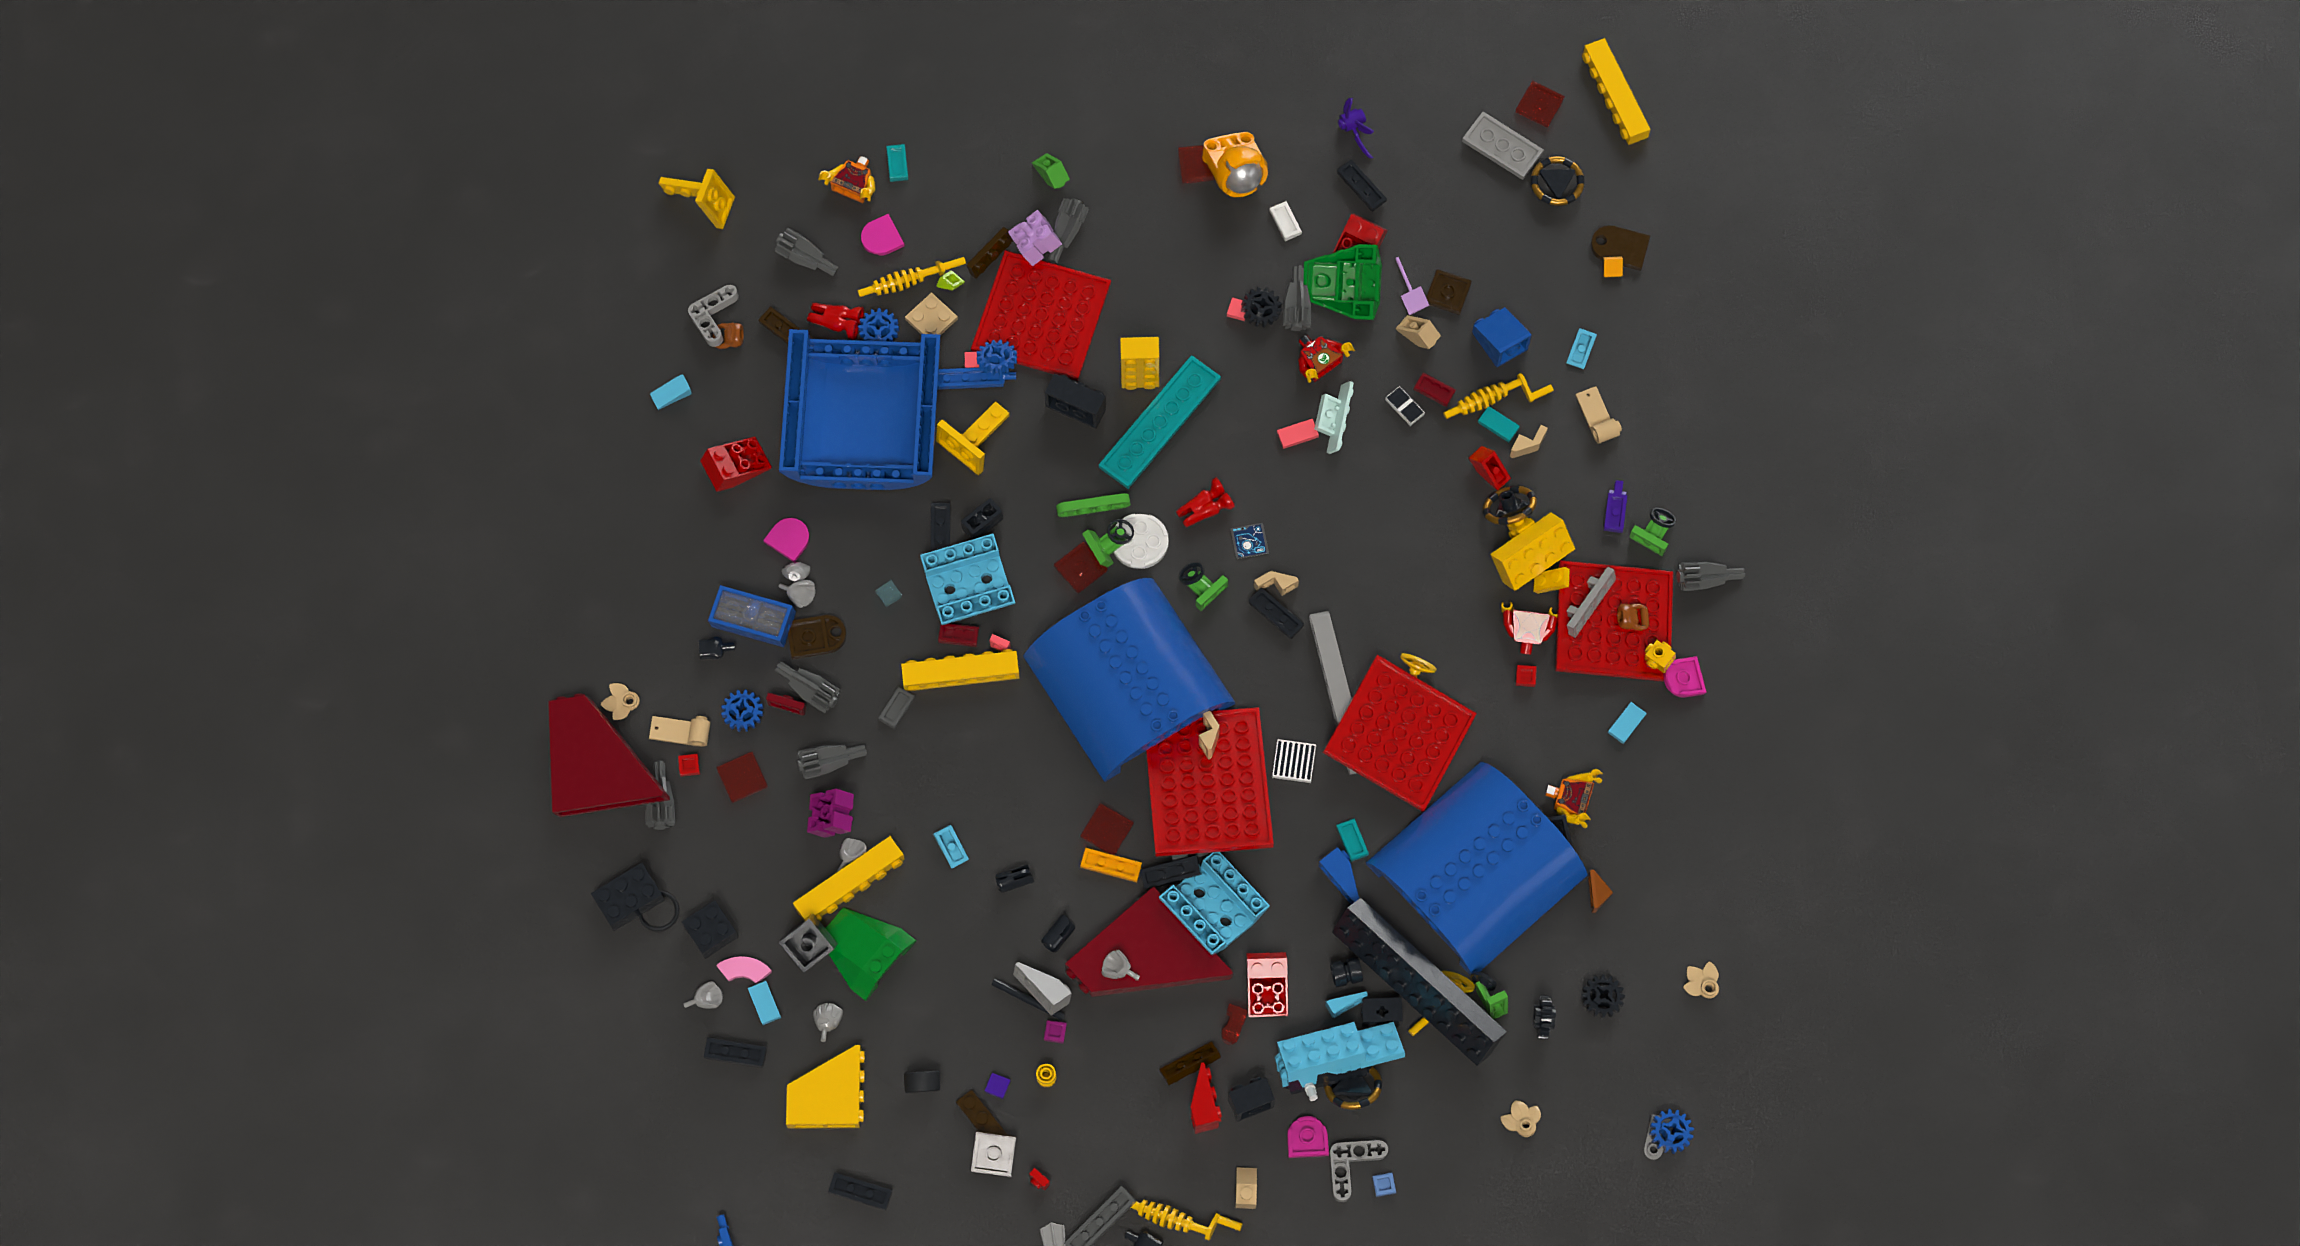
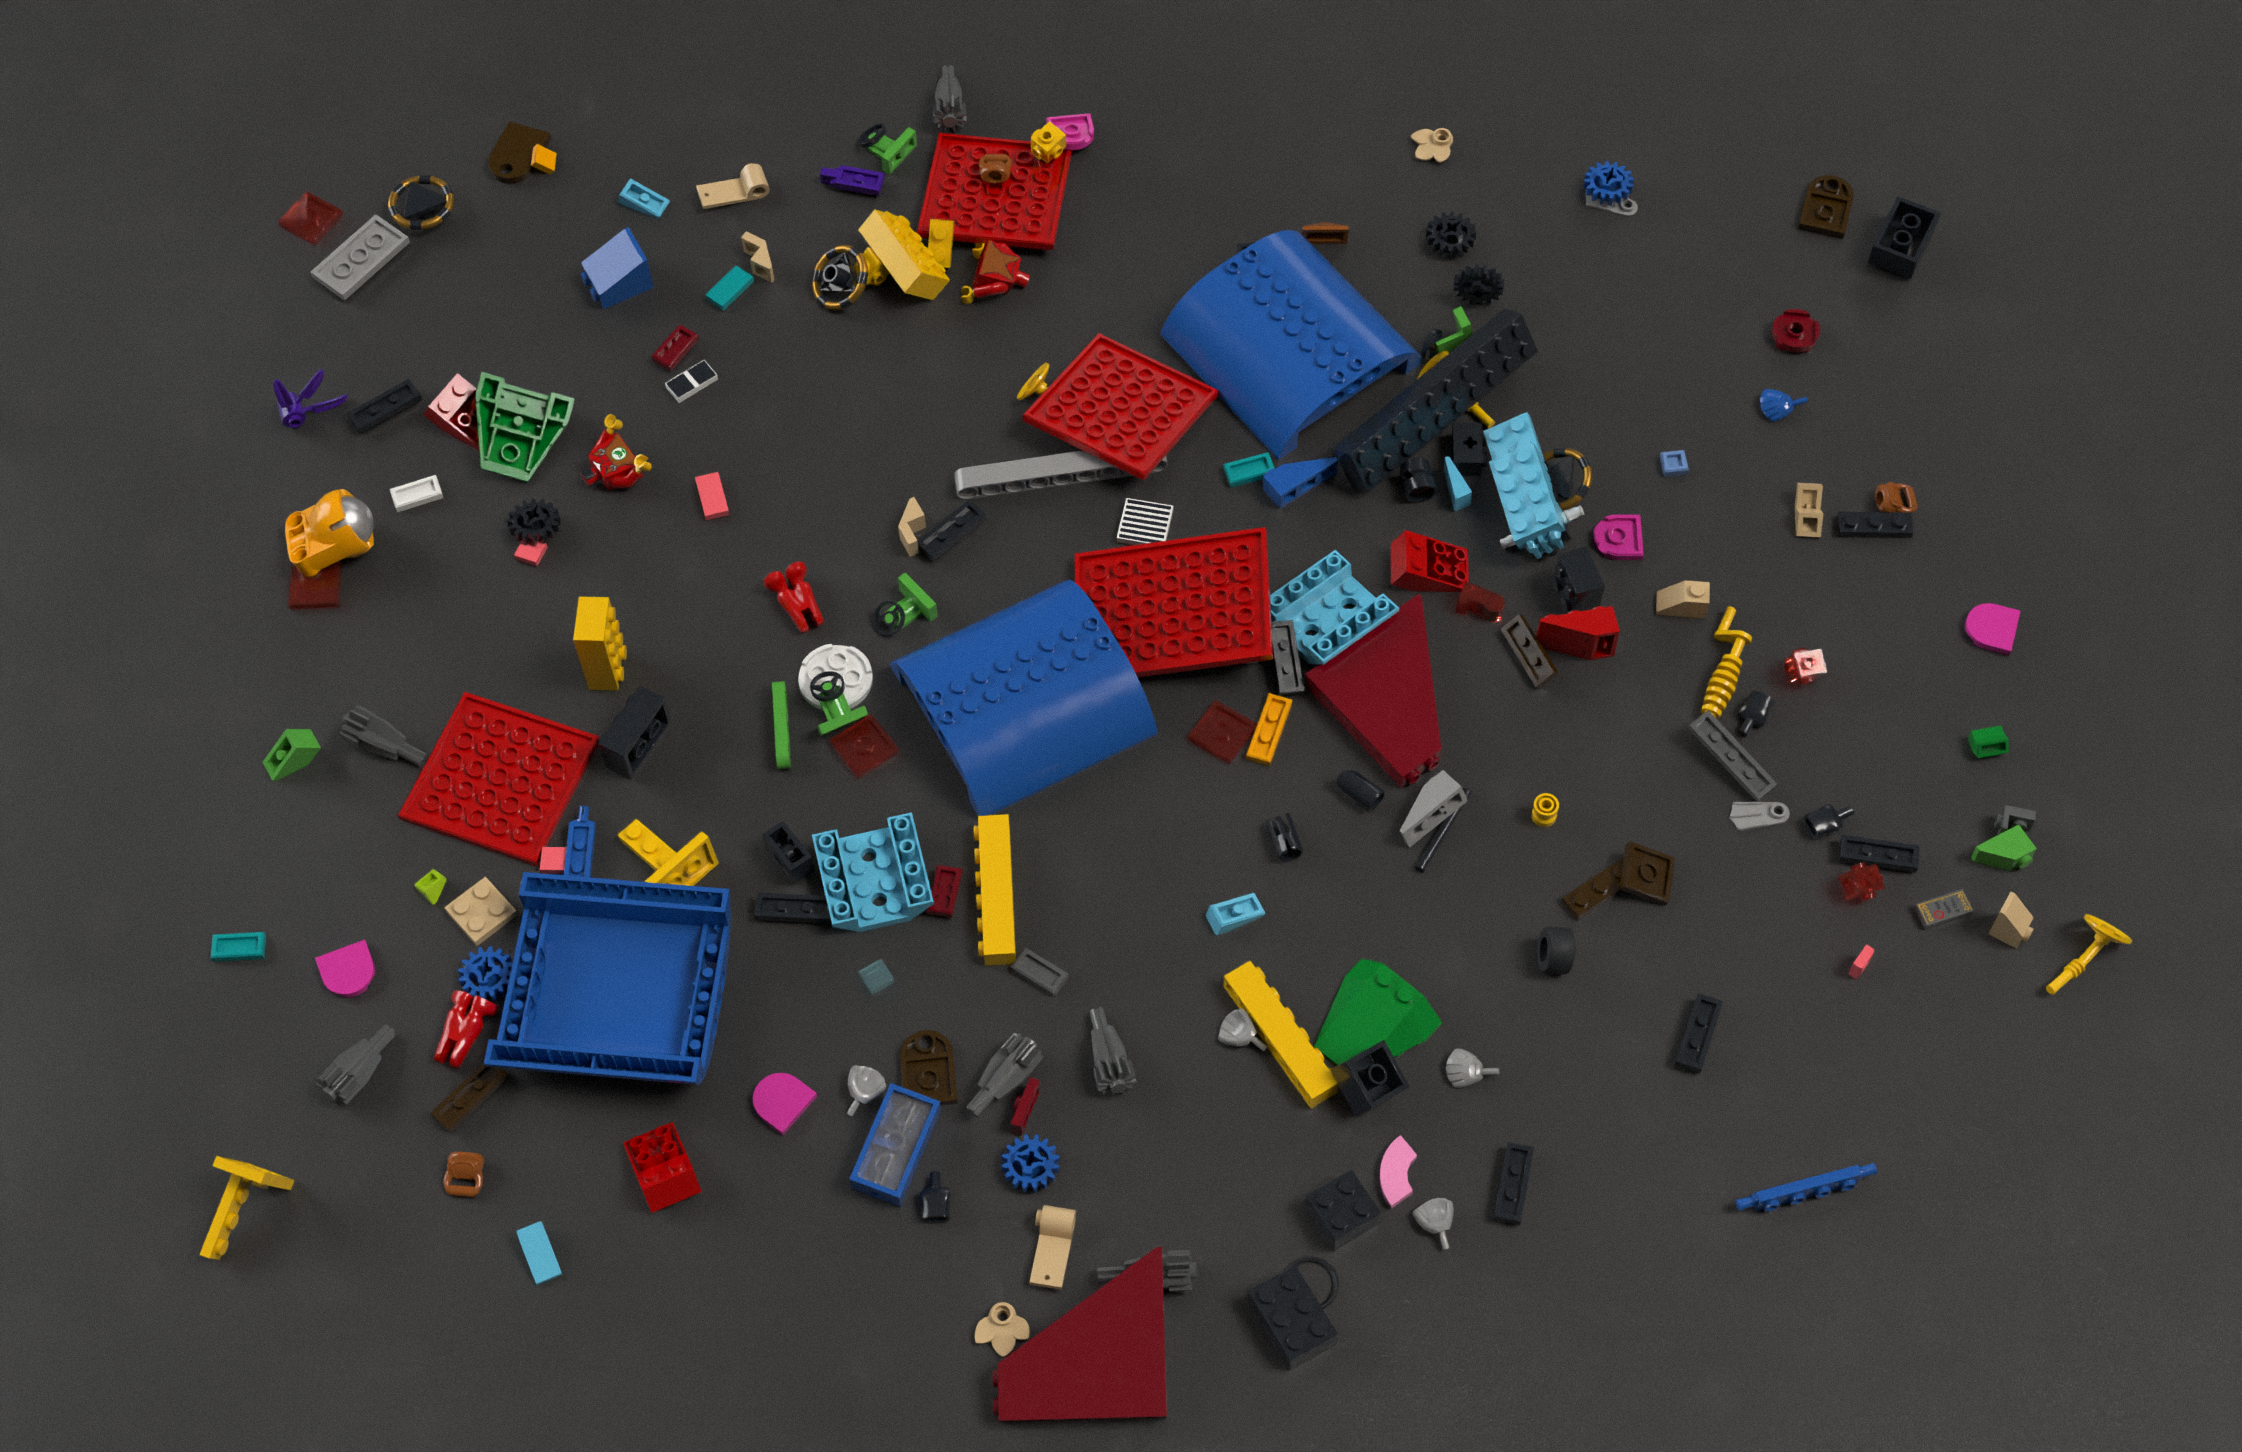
camera: 85 degrees left, 10 degrees down
(689, 765) = (1104, 1236): red plate -> none
(705, 315) = (428, 1202): light grey beam -> none
(742, 777) = (1124, 1169): clear red tile -> none
(764, 1003) = (1443, 1147): medium azure tile -> none
(796, 571) = (833, 1090): light grey piece -> none
(828, 1094) = (1570, 1066): yellow slope -> none
(830, 813) = (1189, 1046): magenta brick -> none
(851, 180) = (257, 998): torso -> none
(906, 278) = (418, 938): yellow piece -> none
(989, 253) = (400, 831): dark brown plate -> none
(996, 357) = (557, 823): blue gear -> none
(997, 1086) = (1556, 869): dark purple tile -> none
(999, 643) = (963, 841): coral tile -> none
(1034, 237) = (391, 768): lavender brick -> none
(1038, 1179) = (1679, 823): red plate -> none
(1055, 1031) = (1486, 801): magenta tile -> none
(1117, 966) = (1411, 714): light grey piece -> none
(1159, 422) = (680, 647): teal plate -> none
(1209, 739) = (1124, 597): tan slope -> none
(1249, 540) = (848, 557): sticker -> none
(1297, 303) = (537, 480): dark grey piece -> none
(1332, 416) = (696, 451): light aqua bracket -> none
(1344, 1161) = (1647, 500): light grey beam -> none
(1414, 299) = (550, 362): lavender piece -> none
(1419, 331) = (595, 357): tan slope -> none
(1448, 291) = (545, 327): dark brown tile -> none
(1489, 395) = (691, 292): yellow piece -> none
(1490, 467) = (784, 297): red slope -> none
(1520, 1116) = (1592, 324): tan plate -> none
(1526, 675) = (1055, 281): red plate -> none
(1574, 796) = (1209, 242): torso -> none
(1599, 589) = (990, 211): light grey hinge -> none
(1616, 91) = (312, 138): yellow brick -> none
(1627, 723) = (1120, 191): medium azure tile -> none

